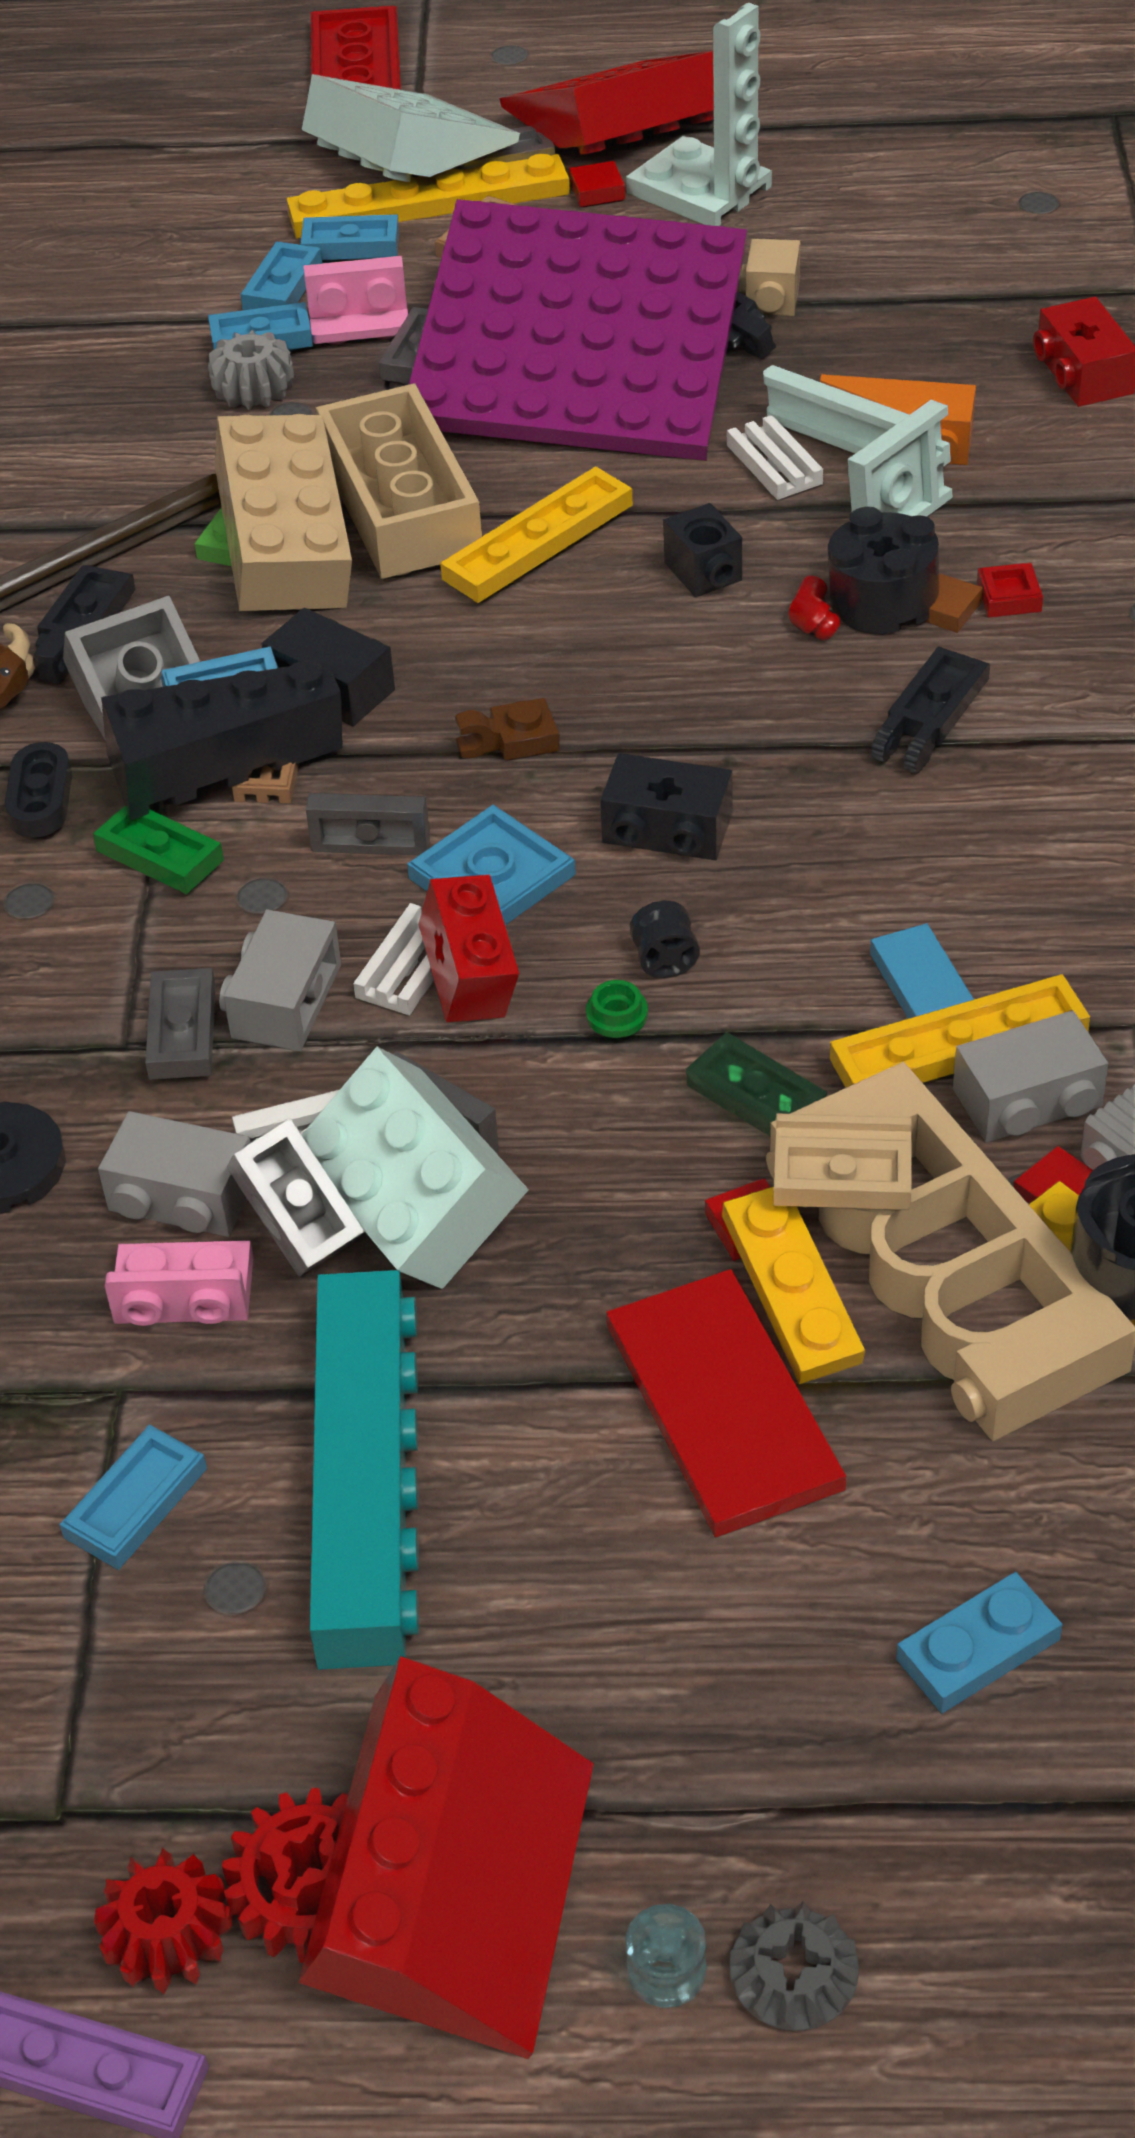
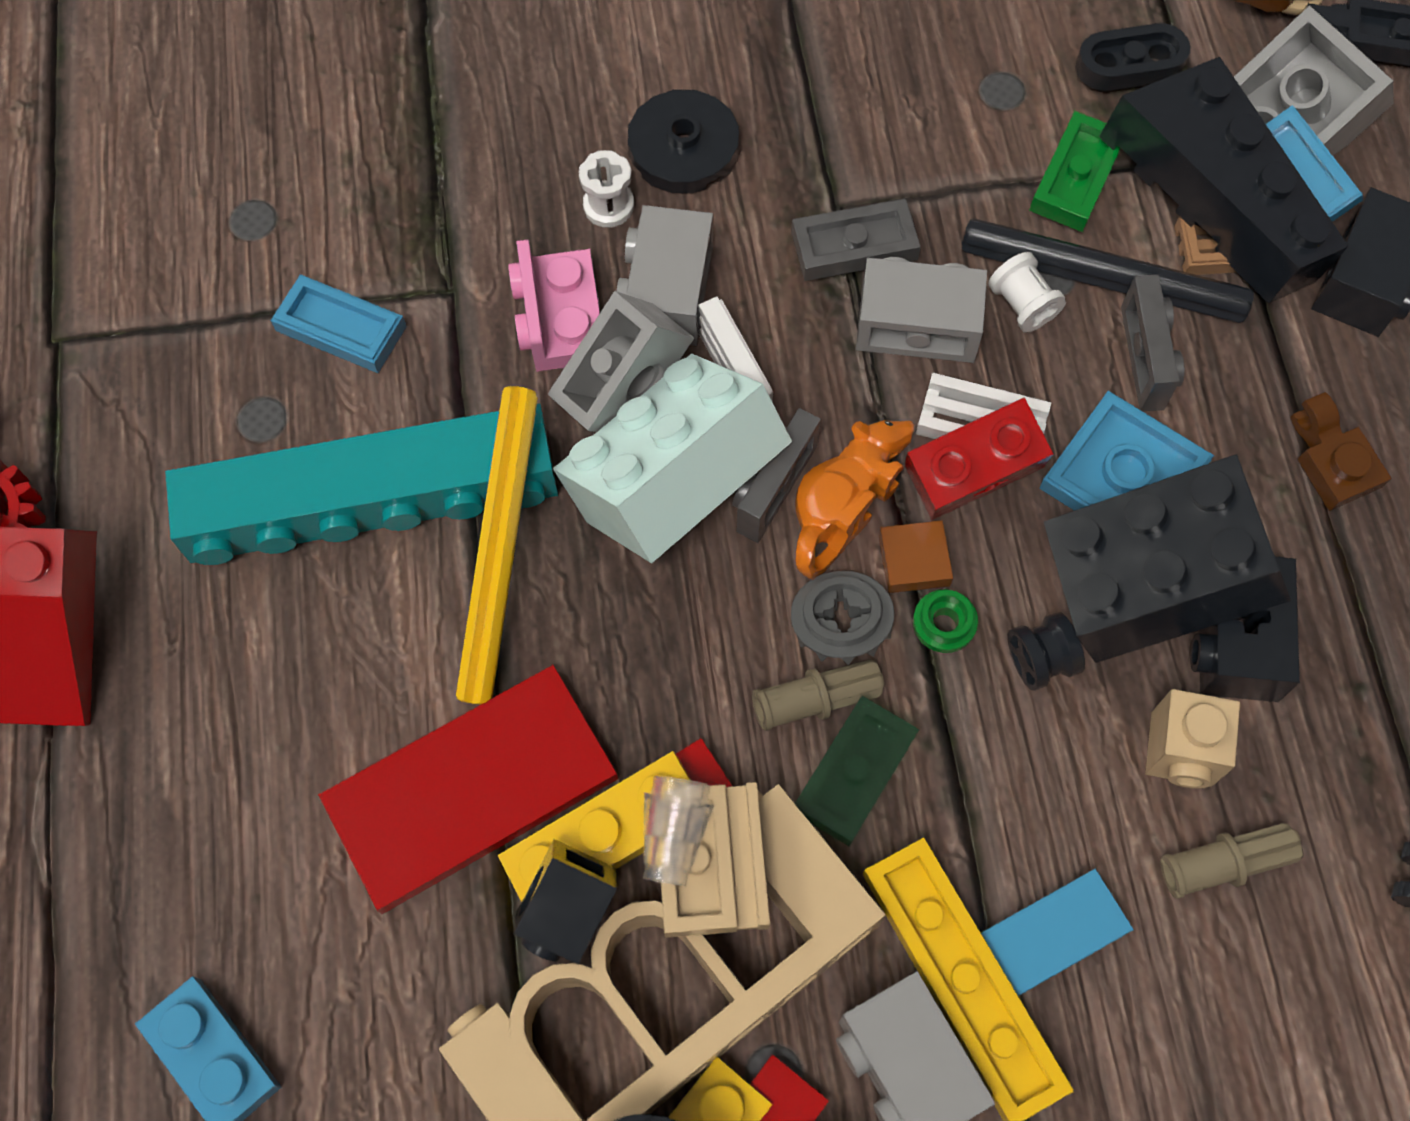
camera: 80 degrees right, 20 degrees up
(51, 1227) = (599, 191): none -> white bush
(267, 855) = (1108, 269): none -> black axle
(291, 896) = (1027, 292): none -> white bush
(472, 1059) = (839, 491): none -> orange animal
(474, 1324) = (497, 545): none -> yellow axle
(545, 1026) = (915, 556): none -> dark orange tile
(583, 1065) = (862, 598): none -> dark grey gear
(605, 823) = (1165, 560): none -> black brick
(676, 1110) = (817, 694): none -> dark tan axle
(766, 854) = (1192, 739): none -> tan brick
(819, 1158) = (674, 828): none -> clear cone
(866, 1290) = (564, 903): none -> black brick
(873, 858) = (1231, 859): none -> dark tan axle

